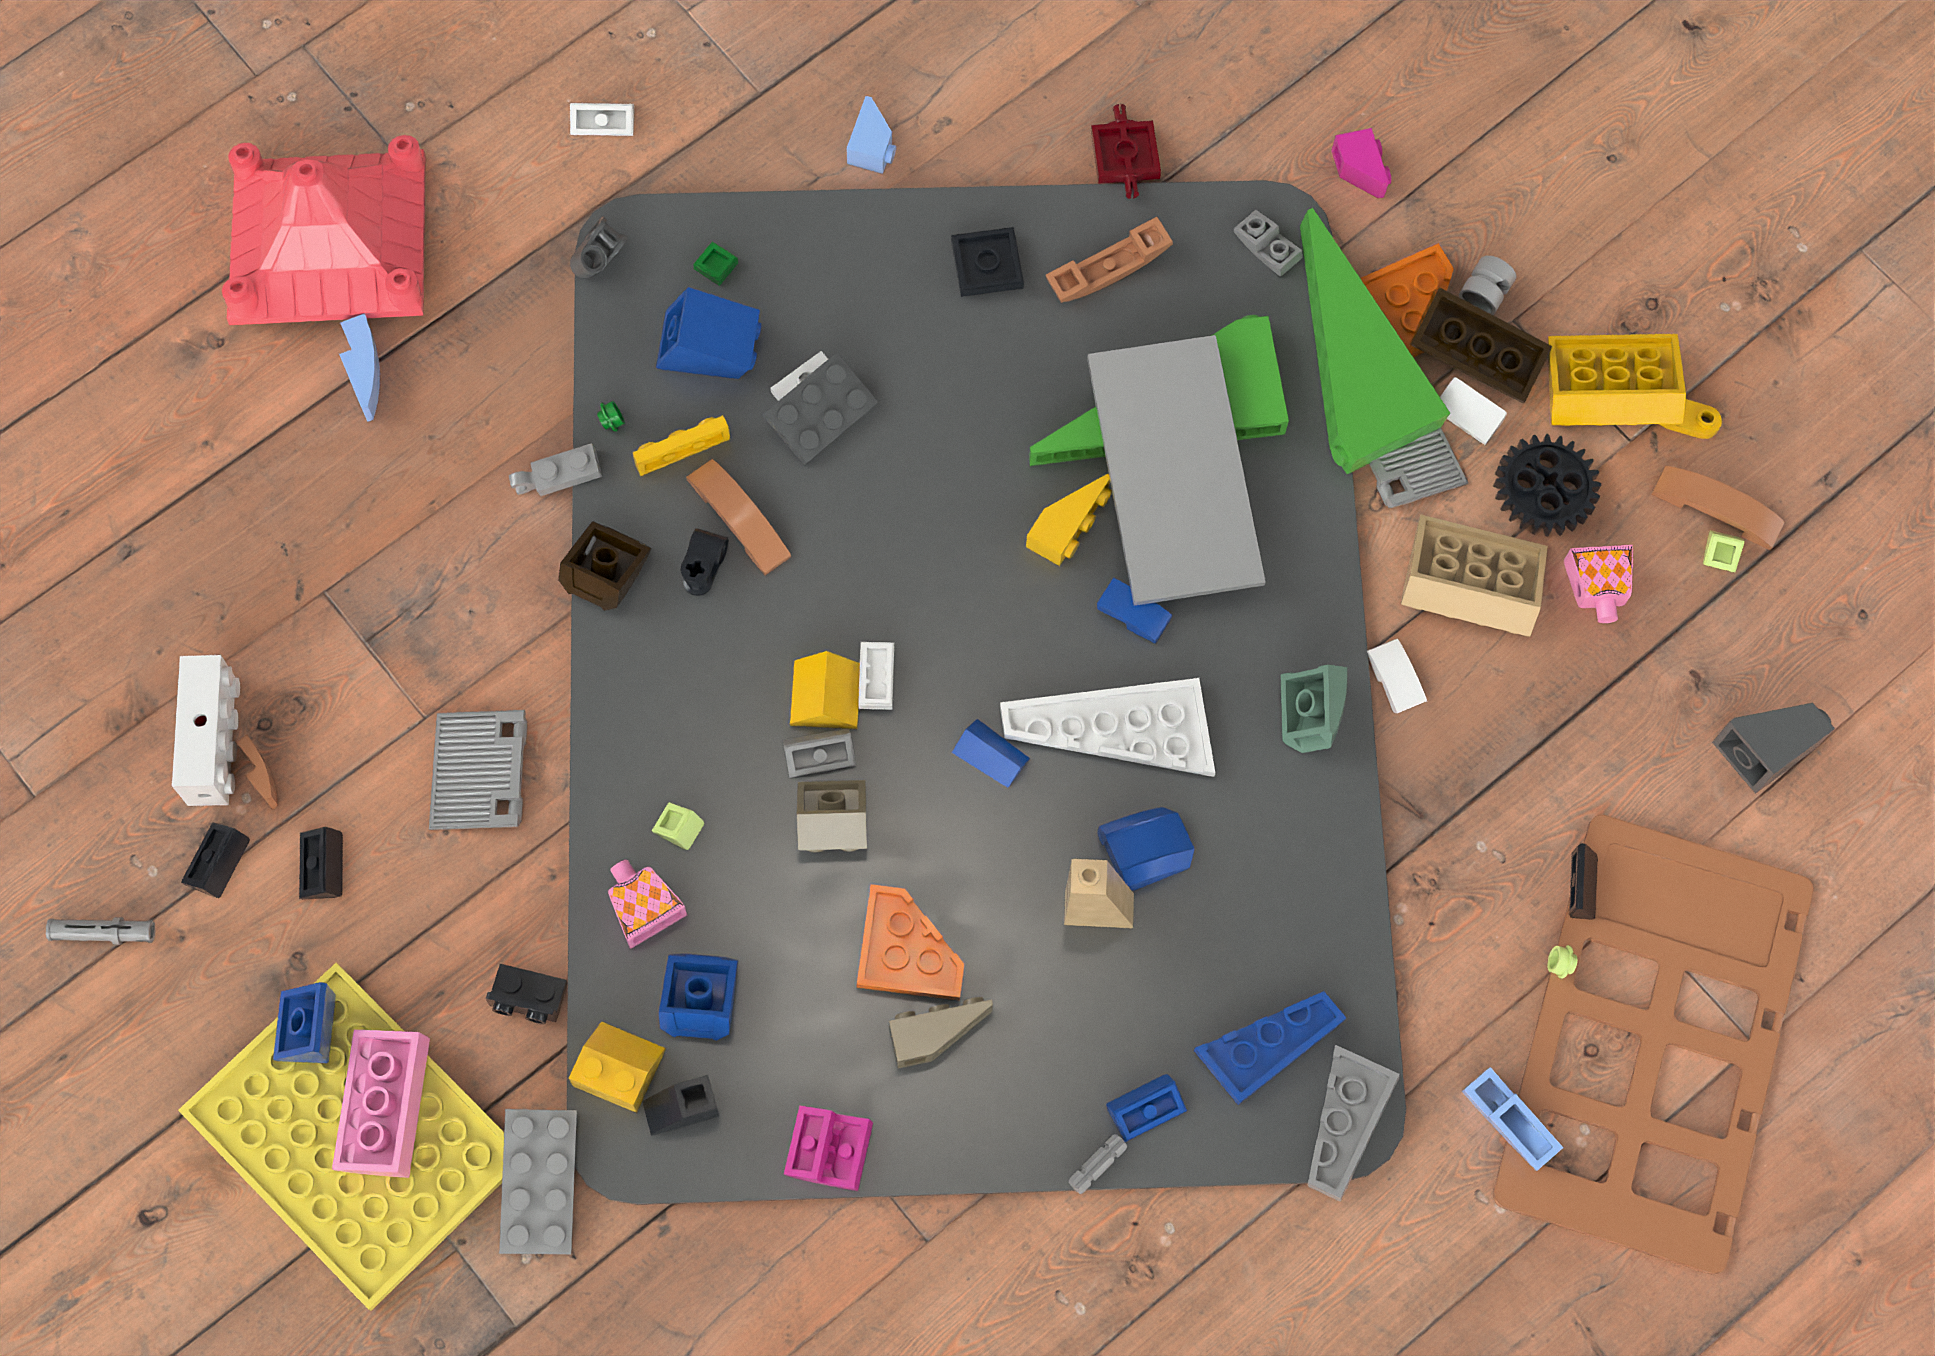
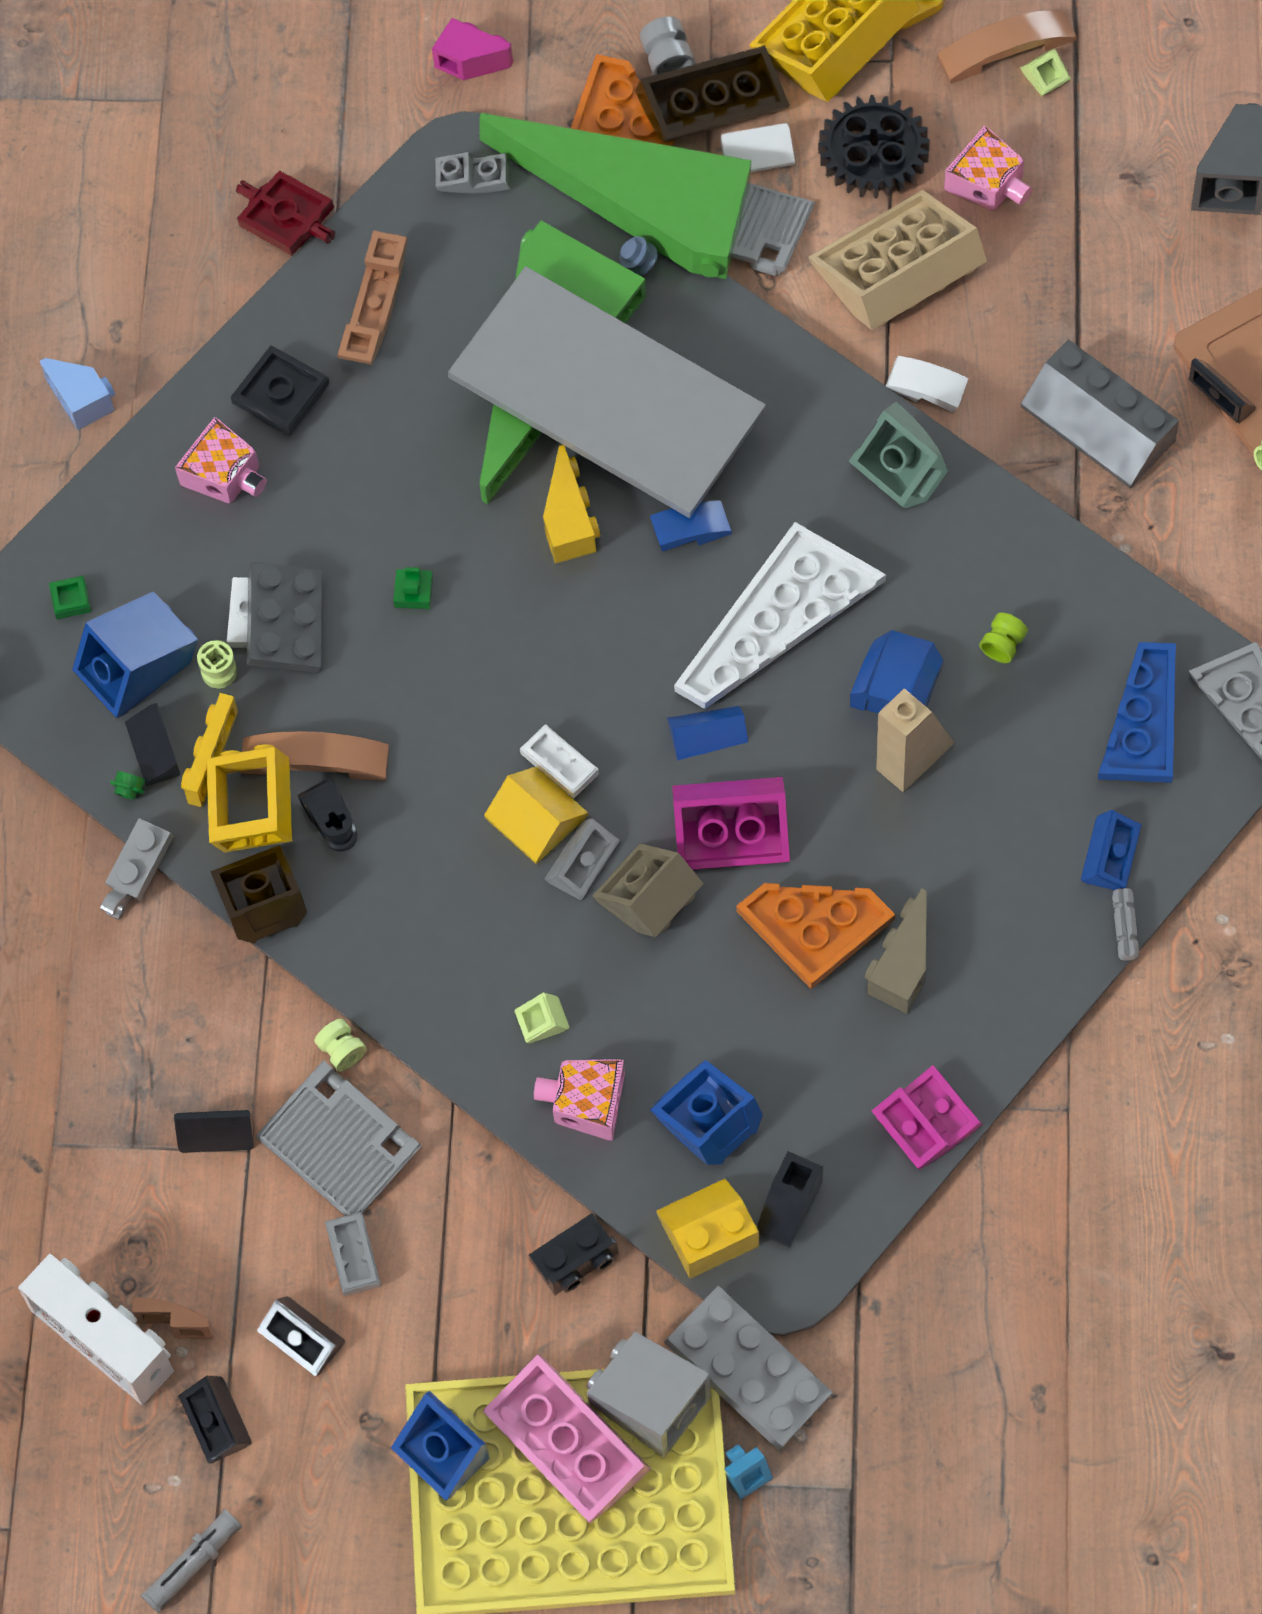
camera: 40 degrees left, 5 degrees down
(403, 848) = (353, 1254): none -> light grey plate
(415, 685) = (214, 1131): none -> black slope
(455, 1130) = (649, 1392): none -> light grey slope
(463, 1244) = (746, 1471): none -> dark azure tile
(545, 711) = (340, 1045): none -> yellowish green wheel
(654, 407) = (152, 745): none -> black slope
(679, 516) = (254, 833): none -> yellow window
(747, 403) = (221, 671): none -> yellowish green wheel
(895, 272) = (220, 465): none -> bright pink torso
(920, 472) = (413, 588): none -> green tile
(930, 827) = (731, 823): none -> dark pink slope
(1241, 894) = (1003, 638): none -> lime wheel
(1306, 402) = (638, 255): none -> sand blue wheel
(1483, 814) = (1100, 414): none -> slope

